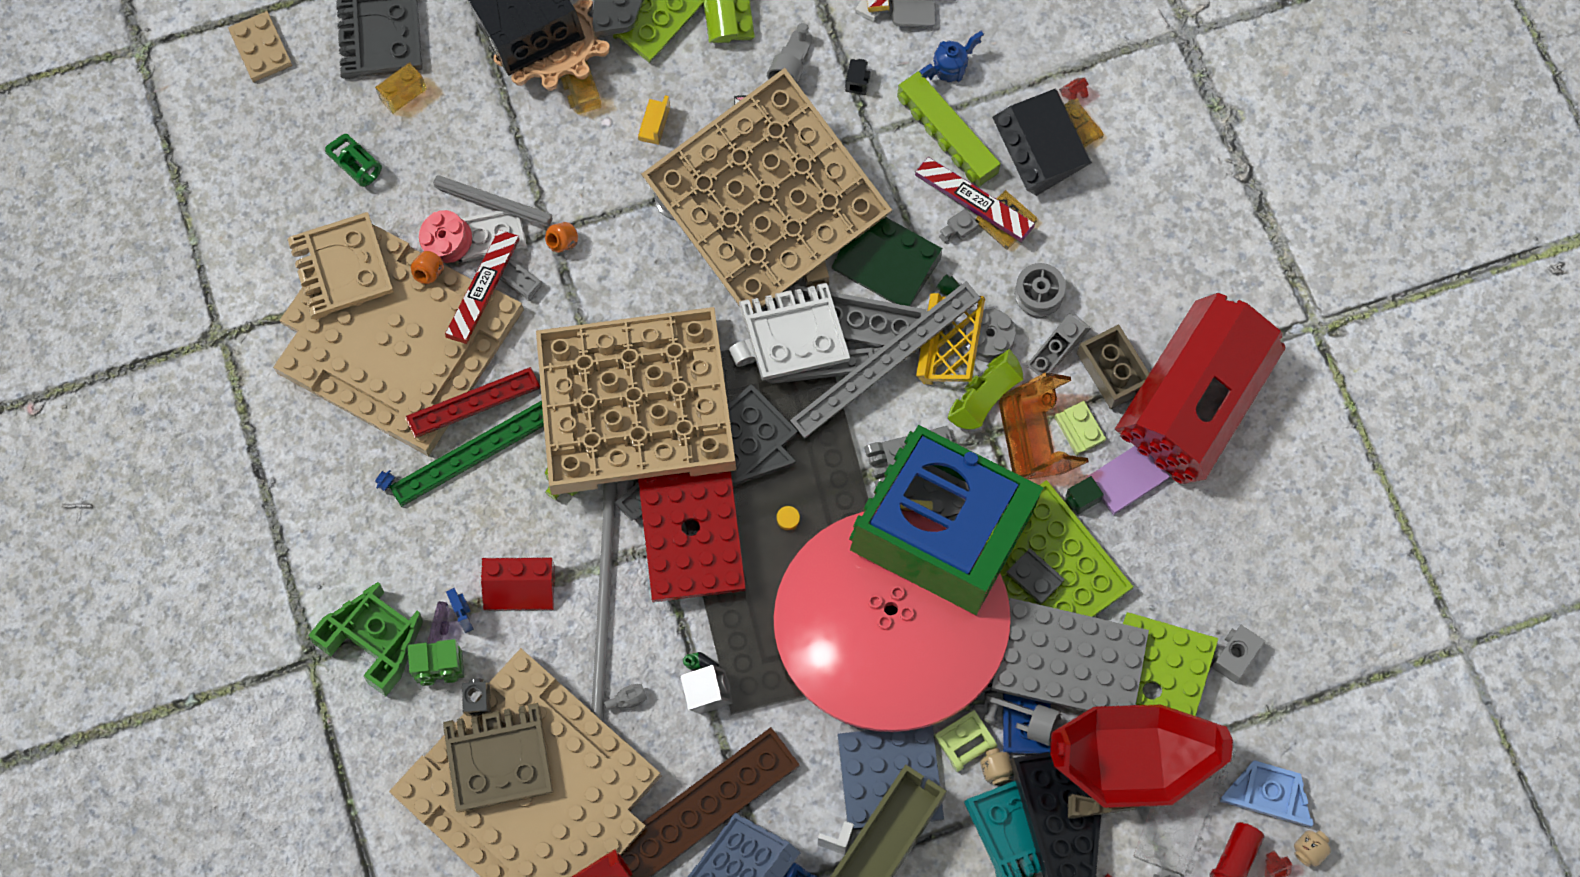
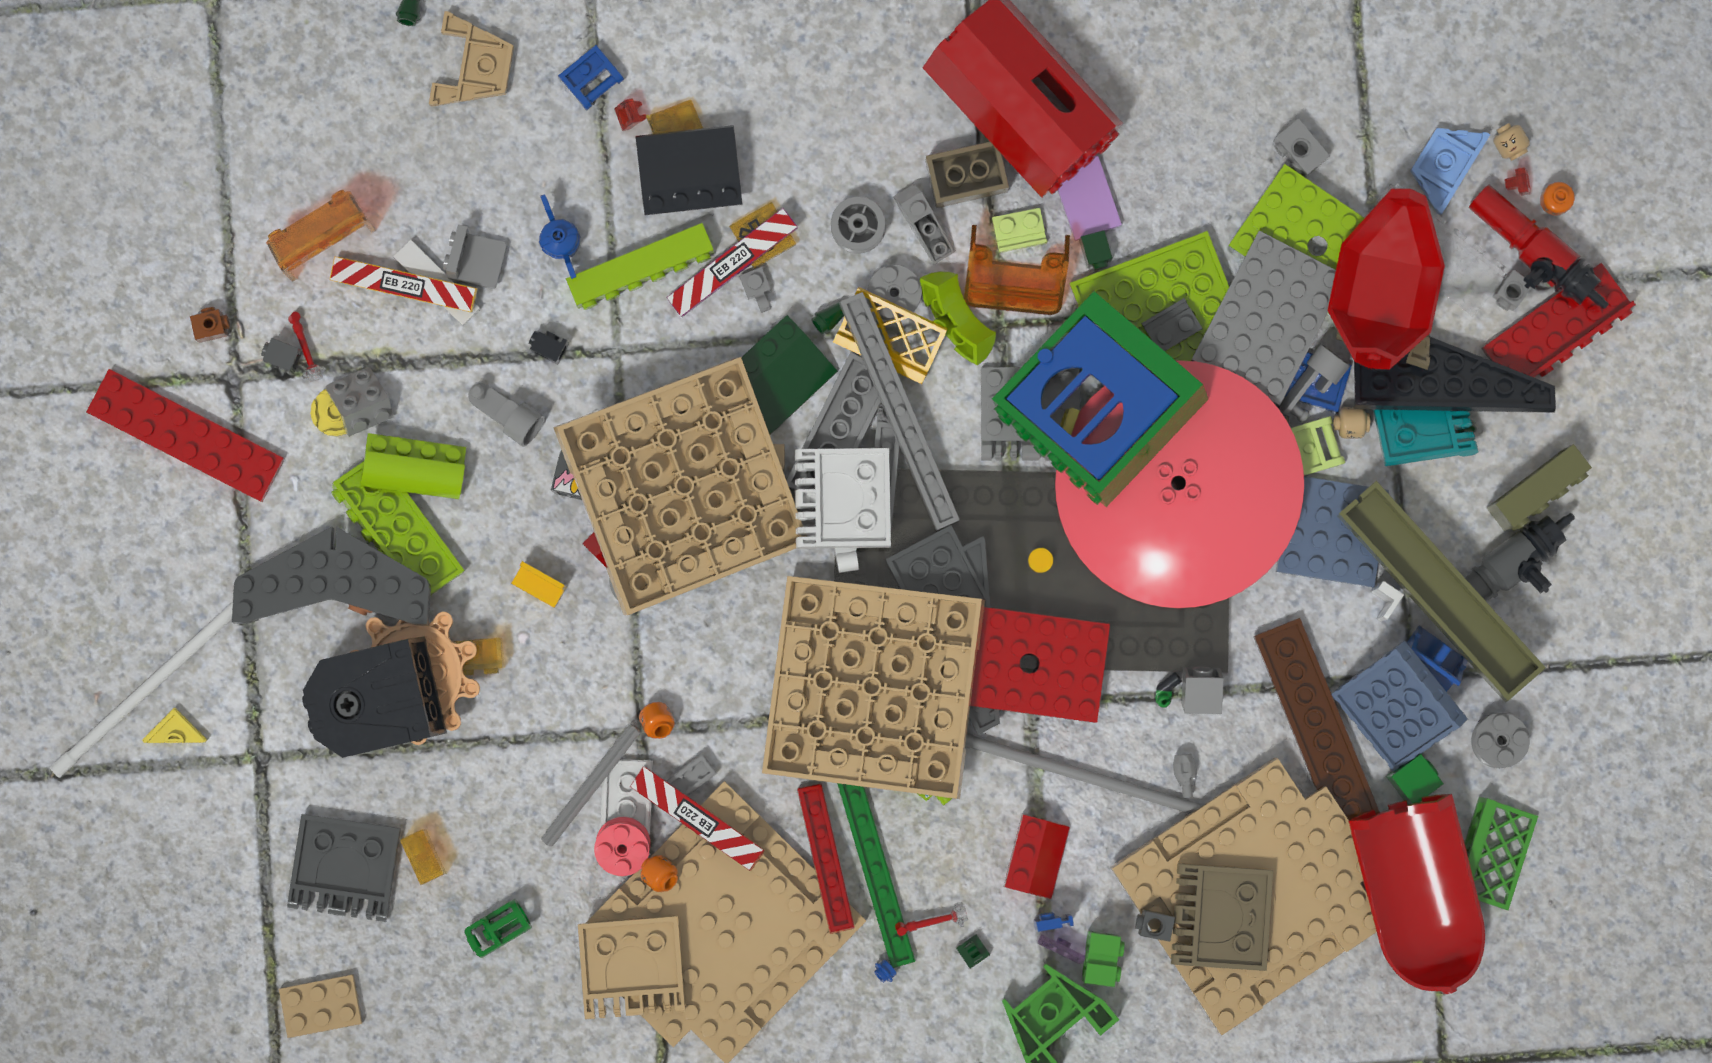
camera: 80 degrees left, 15 degrees up
(420, 553) = (972, 951): none -> dark green tile
(449, 529) = (957, 914): none -> red piece
(1098, 47) = (585, 71): none -> blue plate

